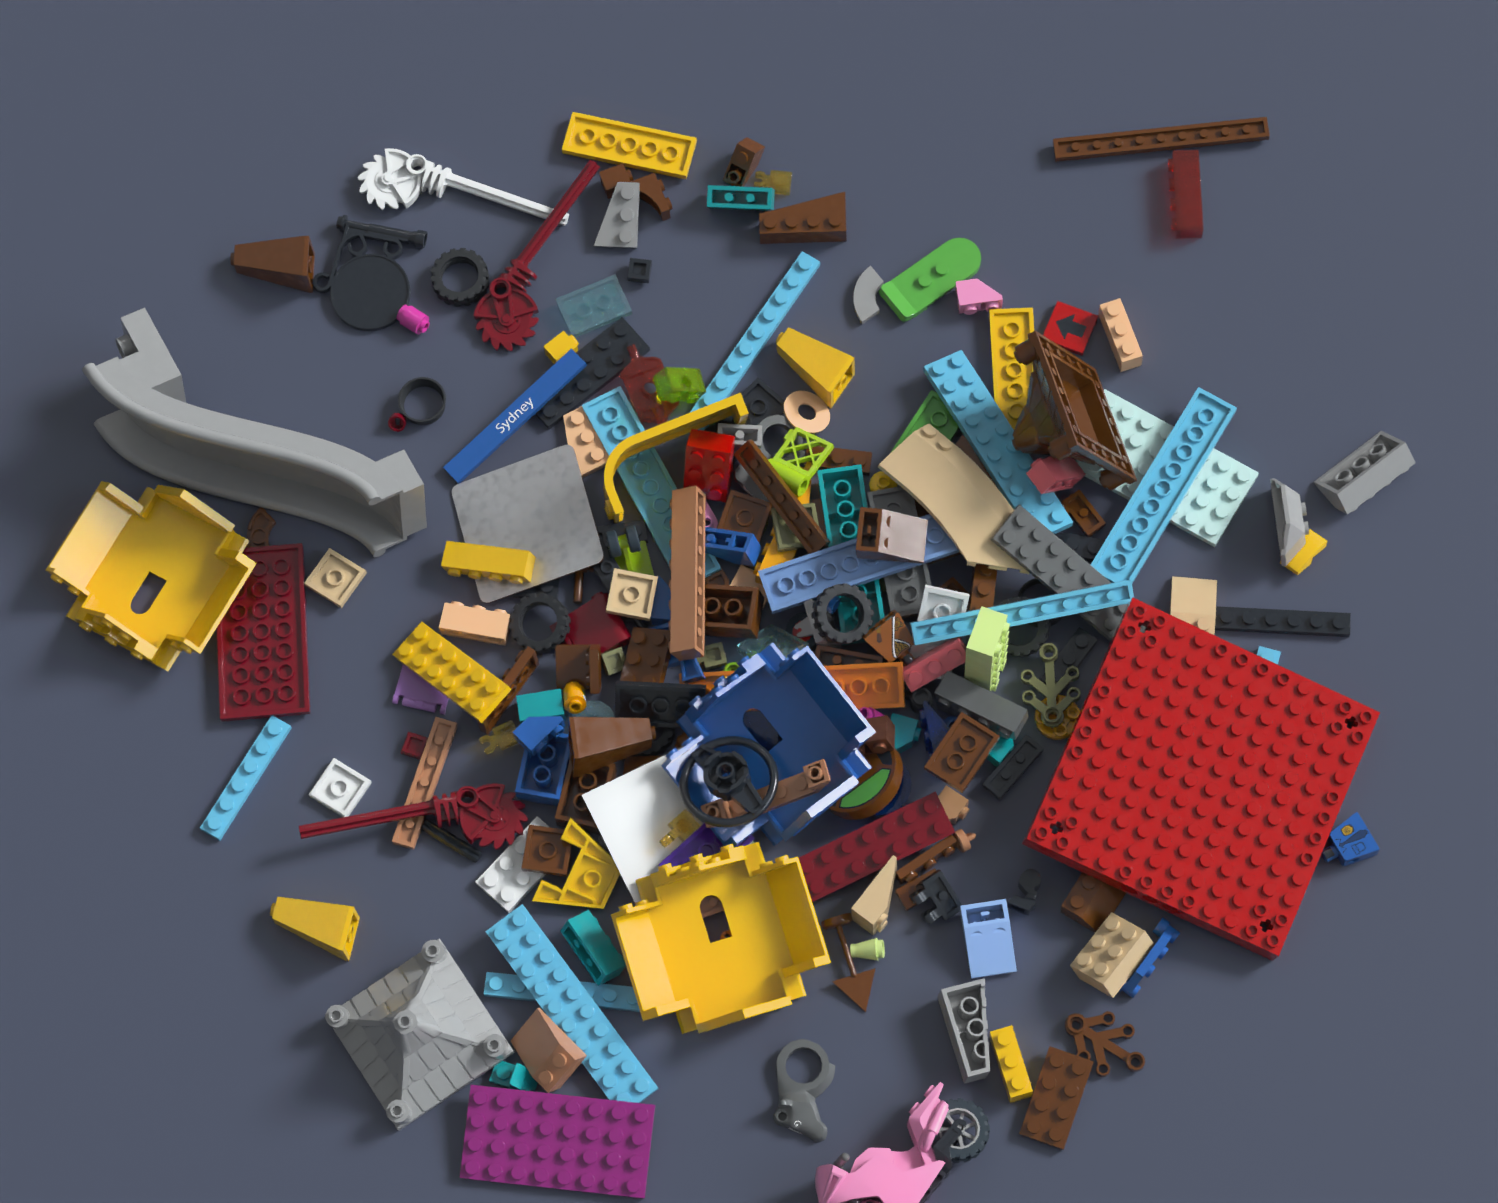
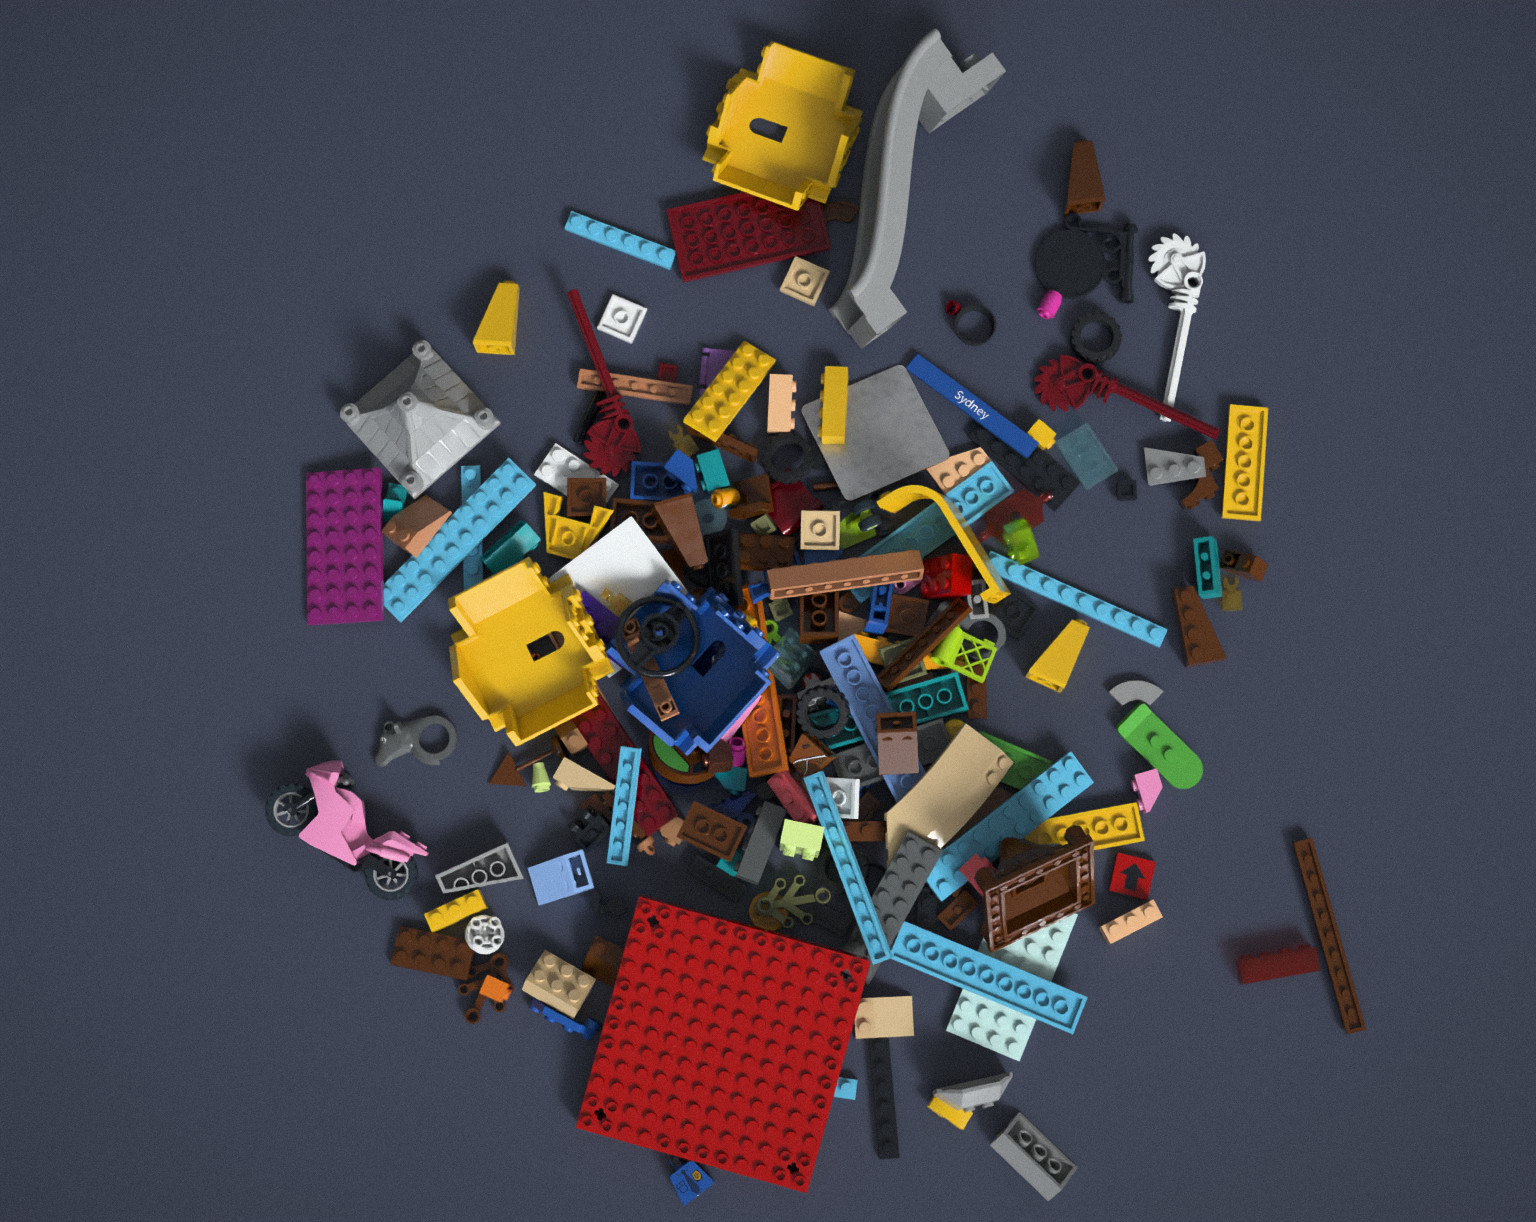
camera: 75 degrees right, 10 degrees up
(821, 410) = (1003, 649): light nougat gear -> none
(829, 904) = (571, 737): none -> medium nougat slope
(917, 850) = (624, 805): none -> medium azure plate
(1042, 1034) = (484, 934): none -> white tile
(1108, 1028) = (495, 989): none -> orange brick

